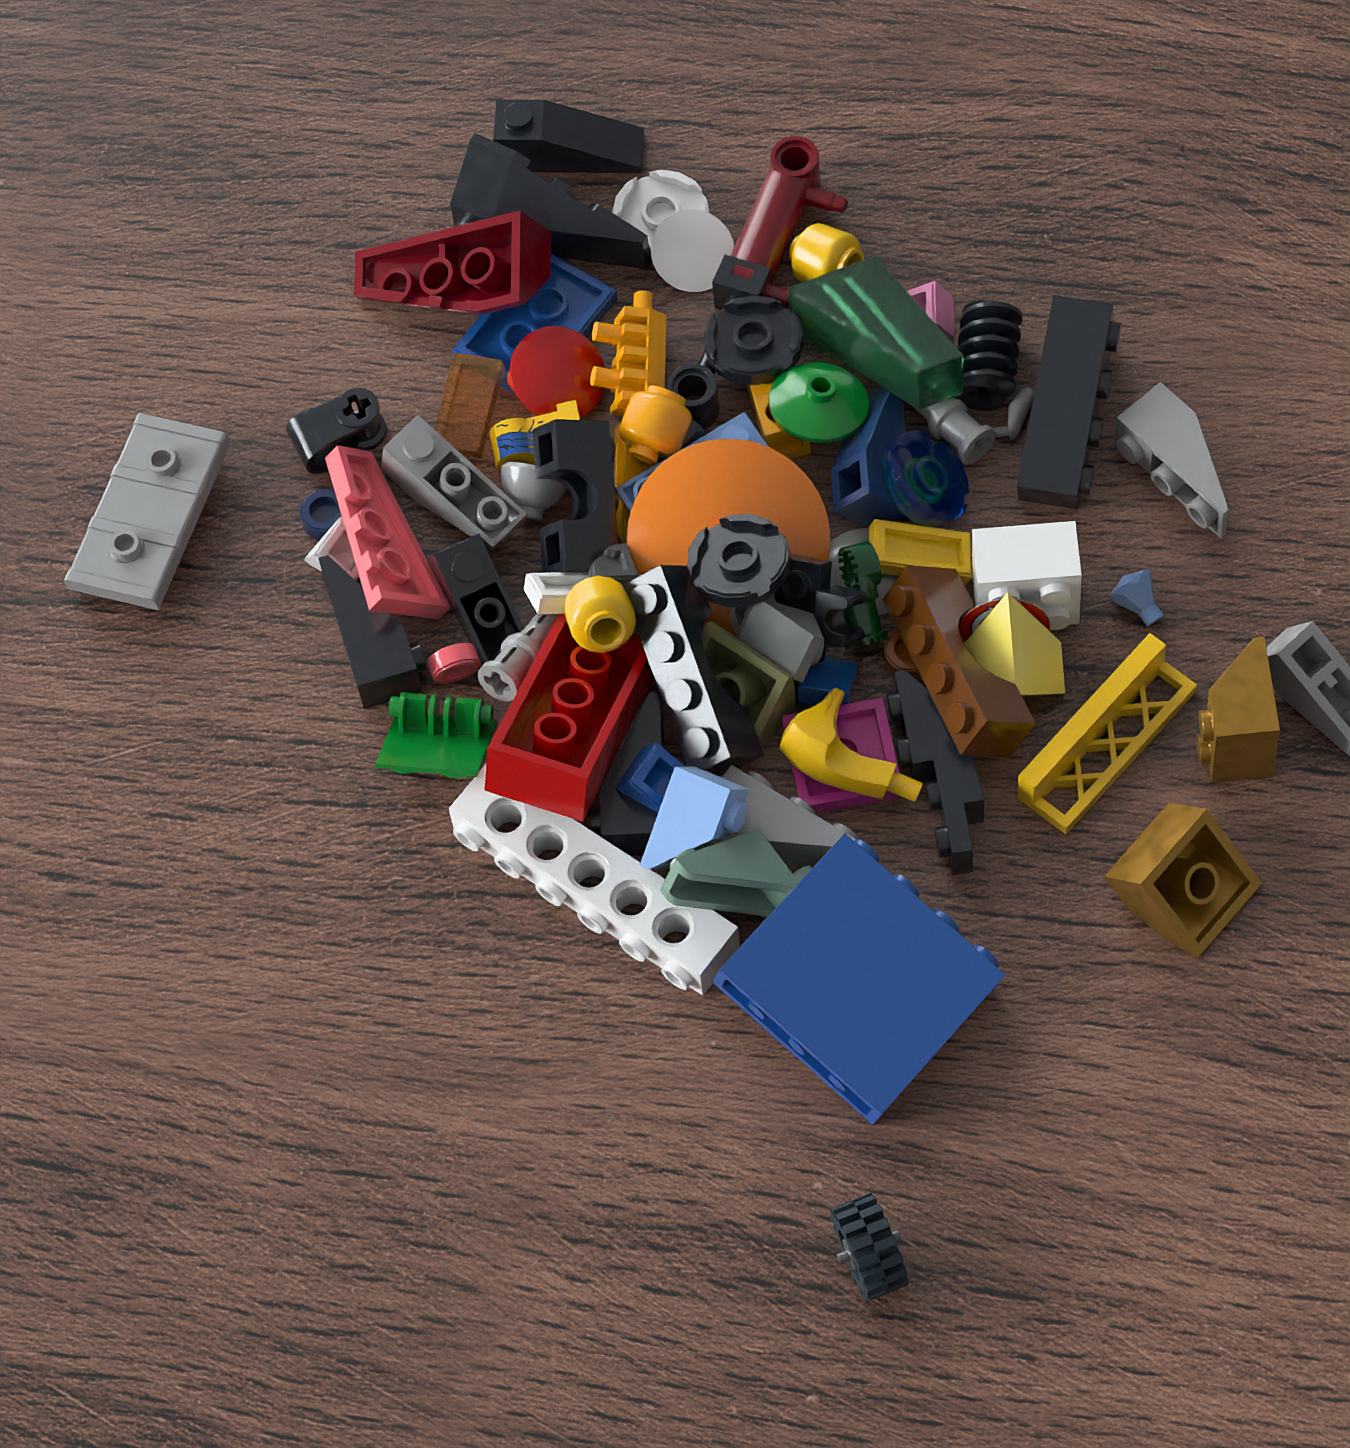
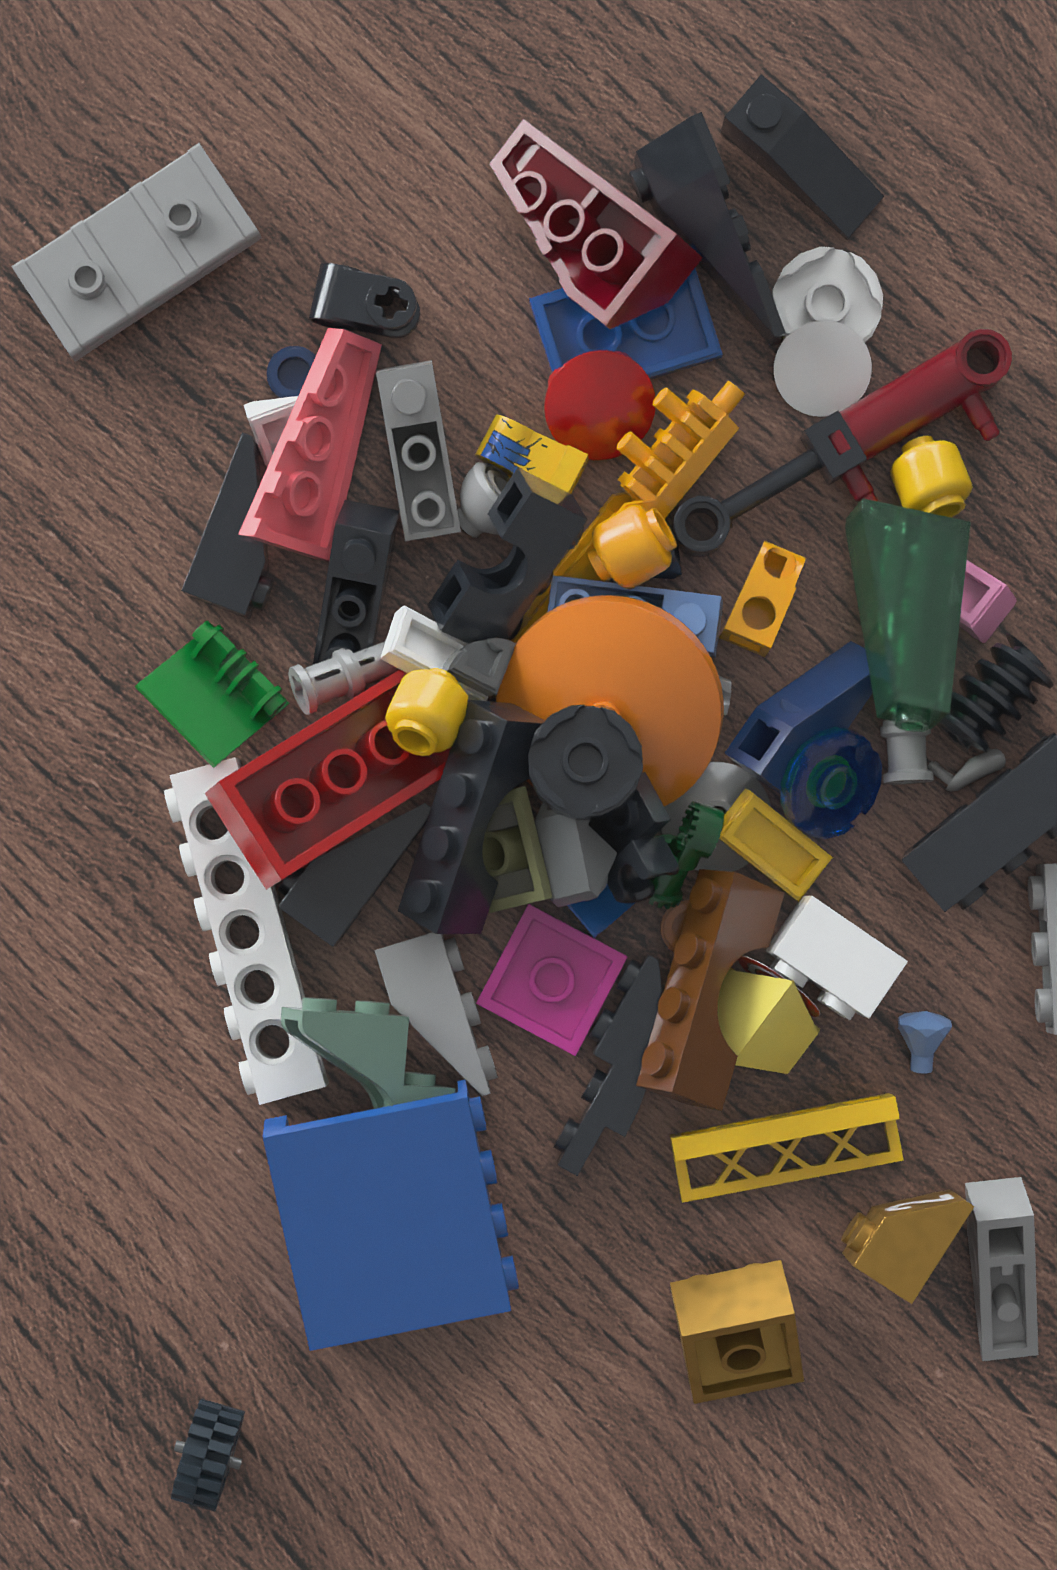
camera: 30 degrees right, 25 degrees up
(453, 663) = (288, 624): coral tile -> none
(469, 402) = (498, 369): clear orange tile -> none
(649, 776) = (360, 895): blue slope -> none
(694, 815) = (364, 966): light blue slope -> none
(753, 340) = (793, 521): black tile -> none
(816, 750) = (522, 975): yellow animal -> none
(818, 402) = (773, 635): green dish -> none

